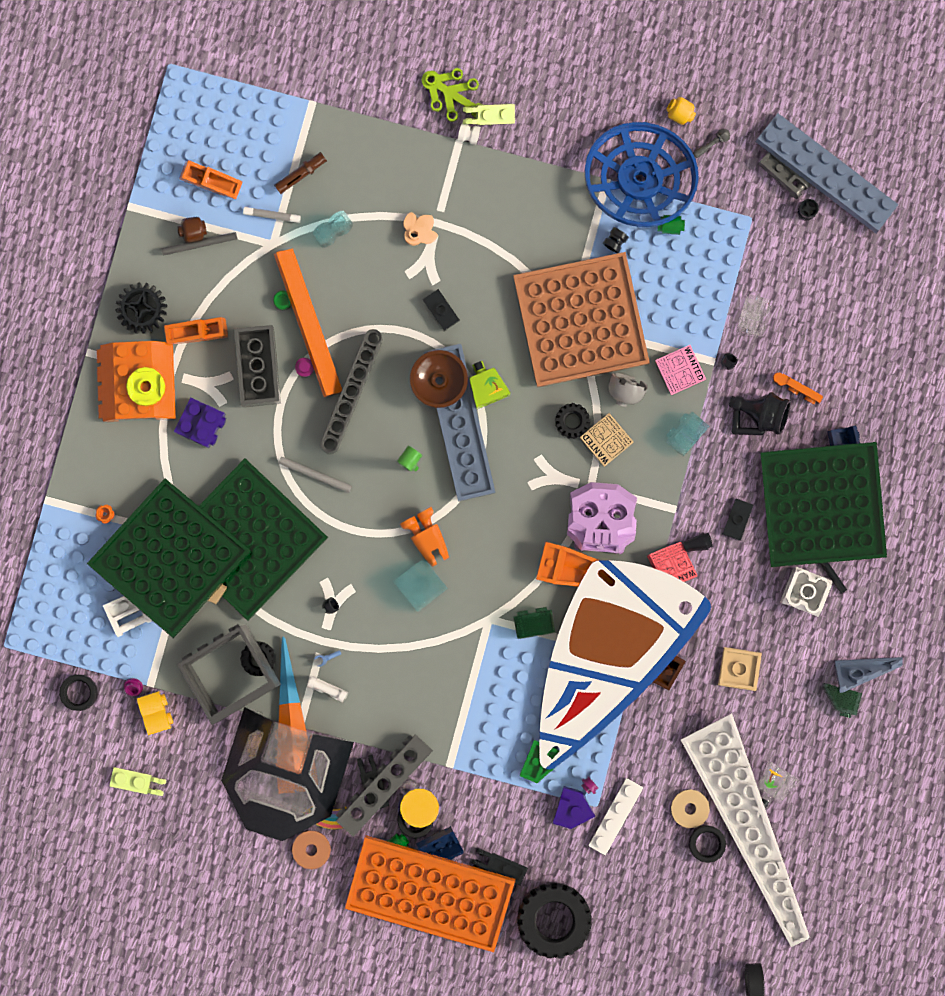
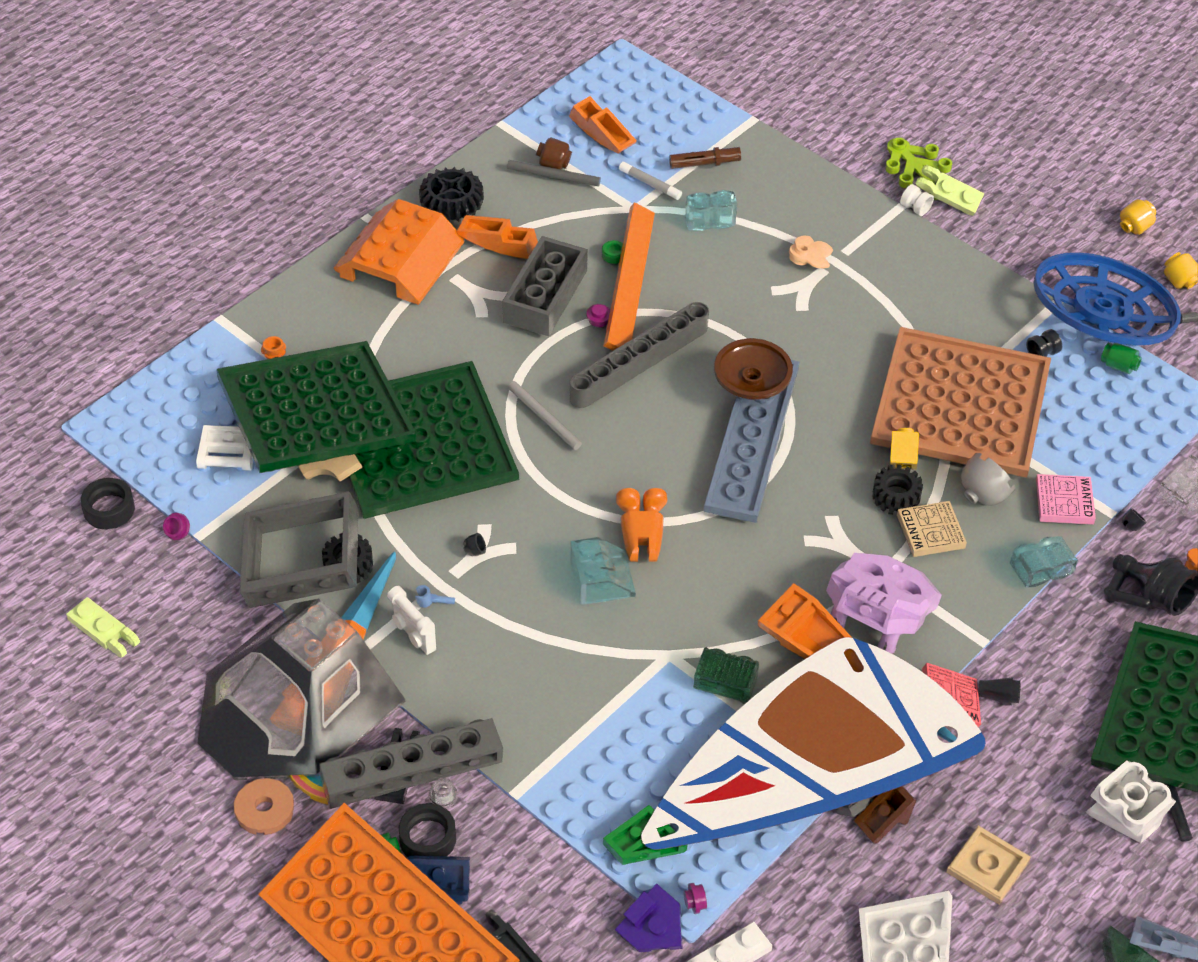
camera: 25 degrees right, 35 degrees down
(134, 386) = (406, 252): neon yellow tile -> none
(154, 712) = (180, 562): yellow brick -> none
(200, 423) = (444, 315): dark purple plate -> none
(410, 458) = (668, 387): bright green piece -> none
(419, 807) = (441, 811): yellow tile -> none
(441, 310) = (793, 329): black plate -> none
(487, 386) = (808, 415): lime torso -> none
(564, 390) = (904, 448): none -> yellow brick
(630, 70) = (1137, 216): none -> yellow head
(737, 519) = (1067, 690): black plate -> none

